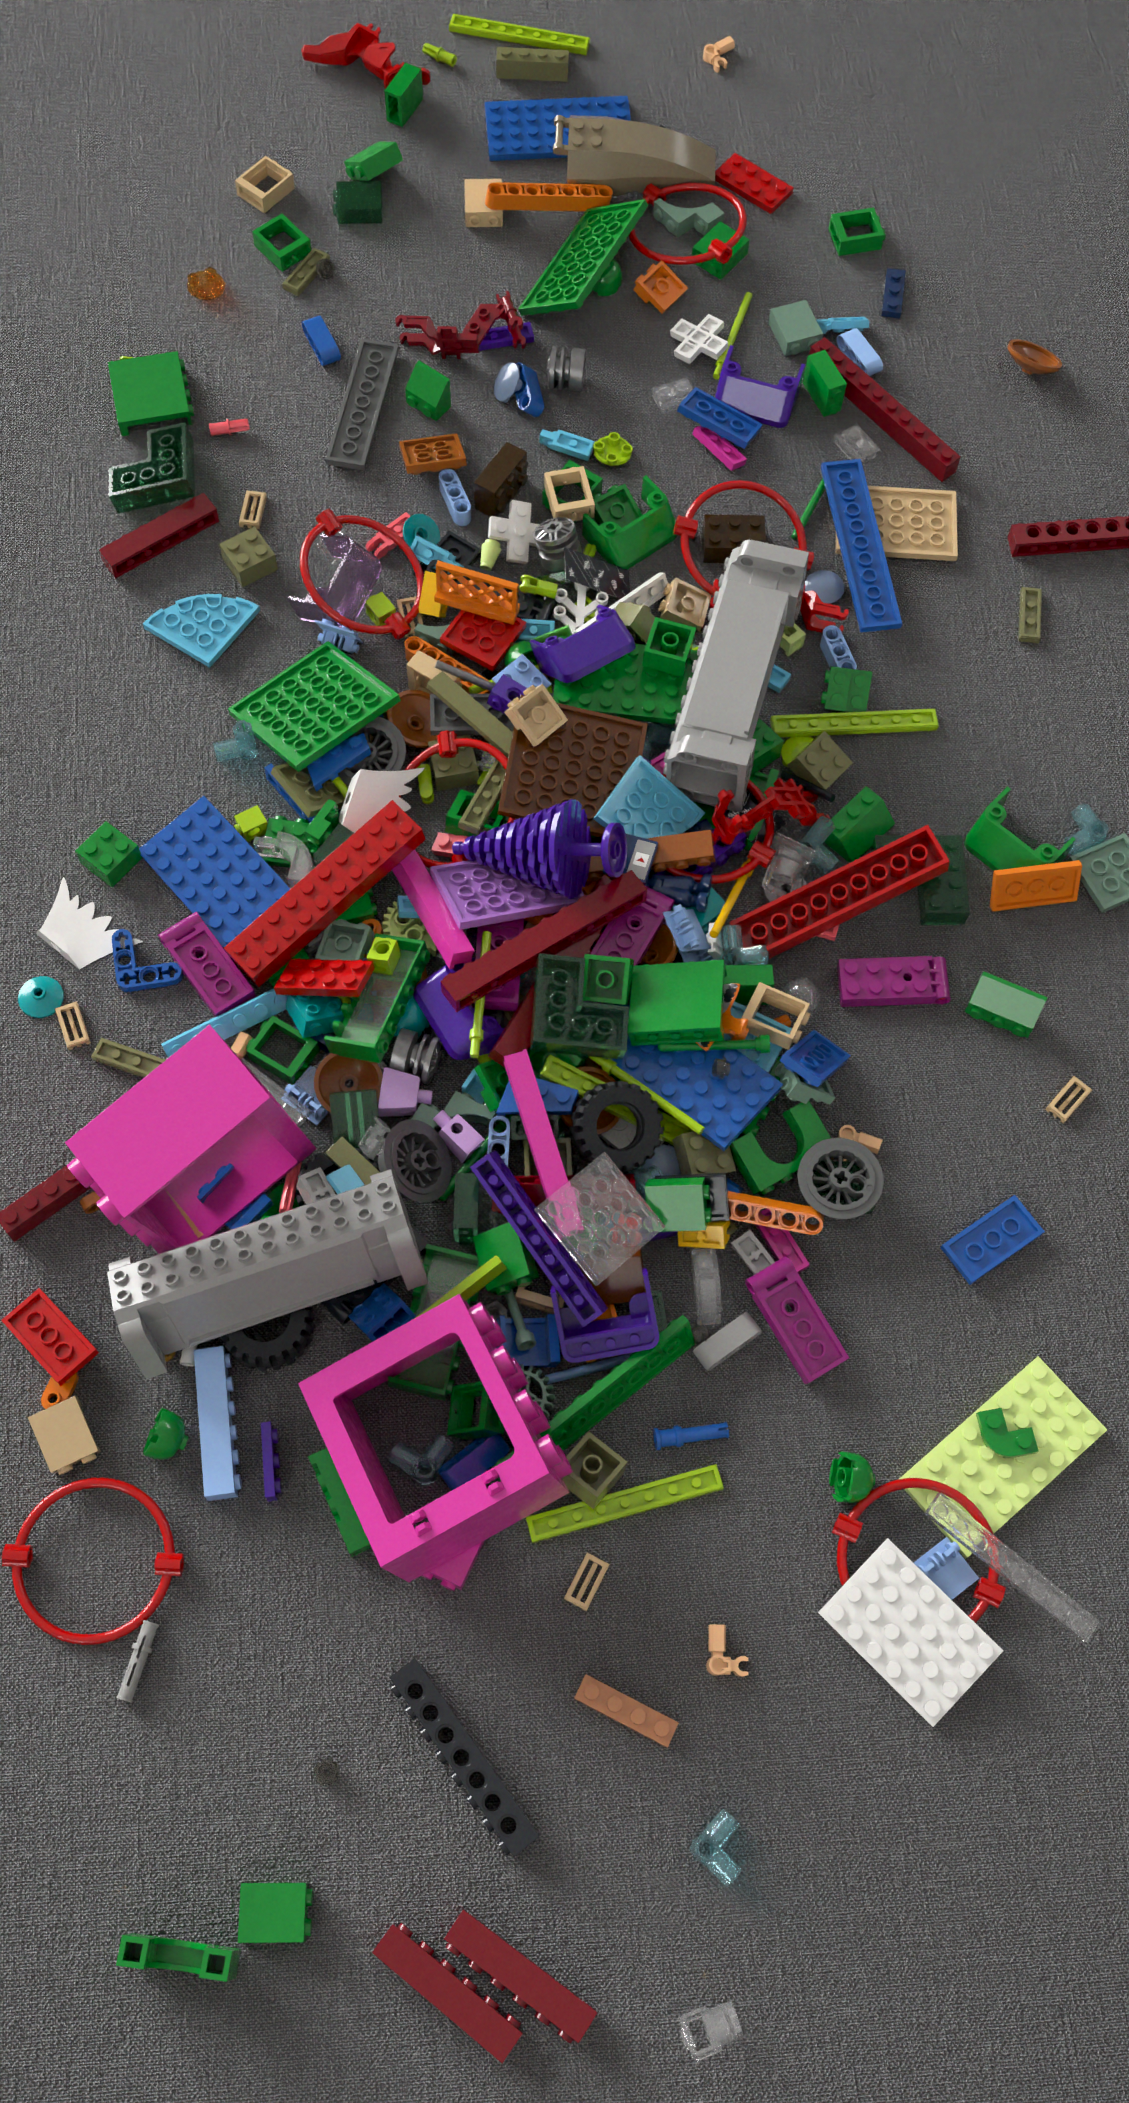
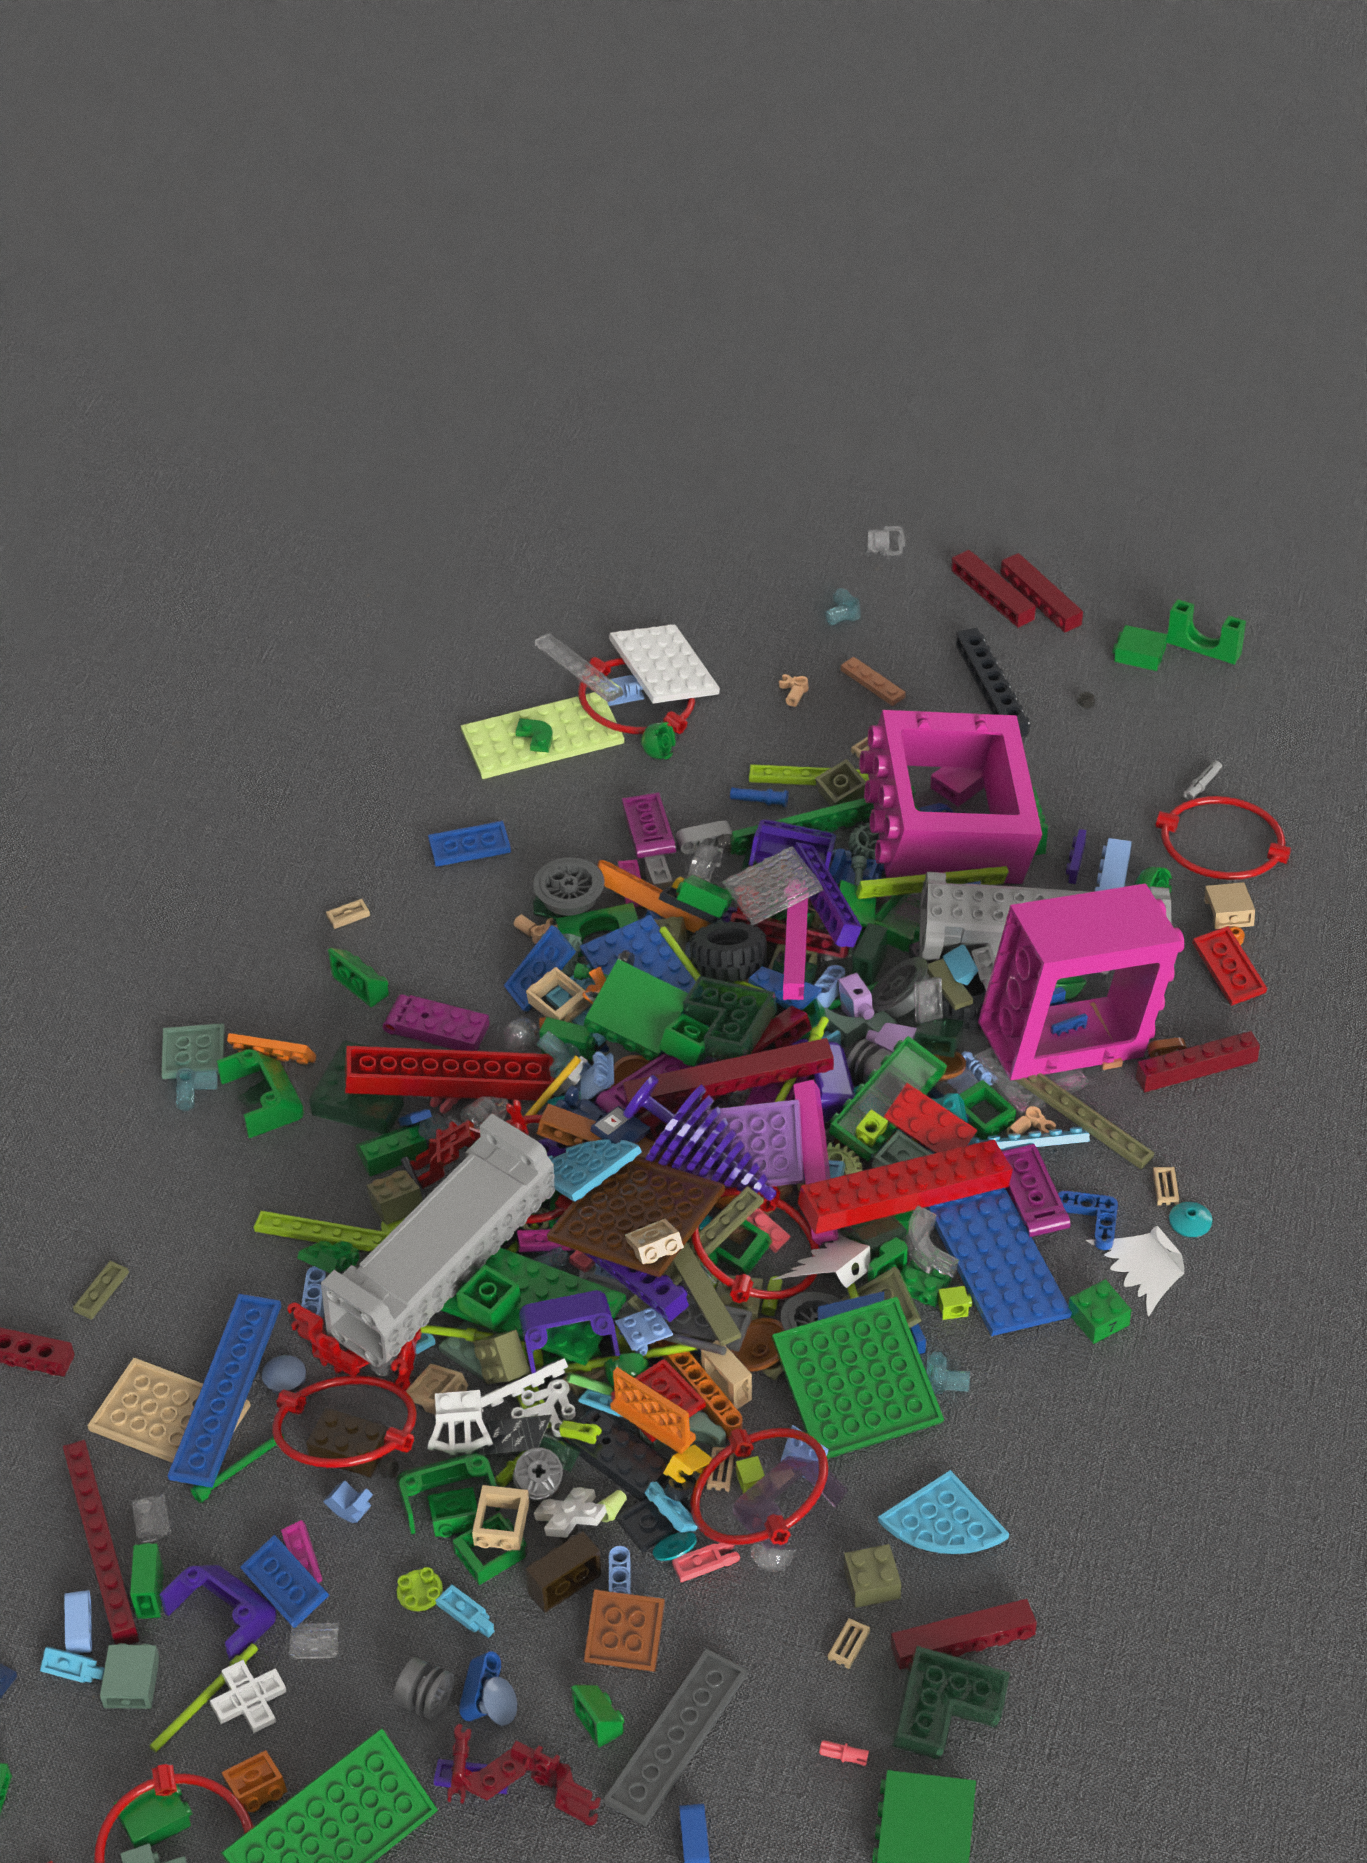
camera: 155 degrees left, 20 degrees down
(649, 577) = (458, 1408): none -> white plate
(696, 486) = (348, 1503): none -> medium blue brick
(844, 839) = (414, 1117): none -> blue tile

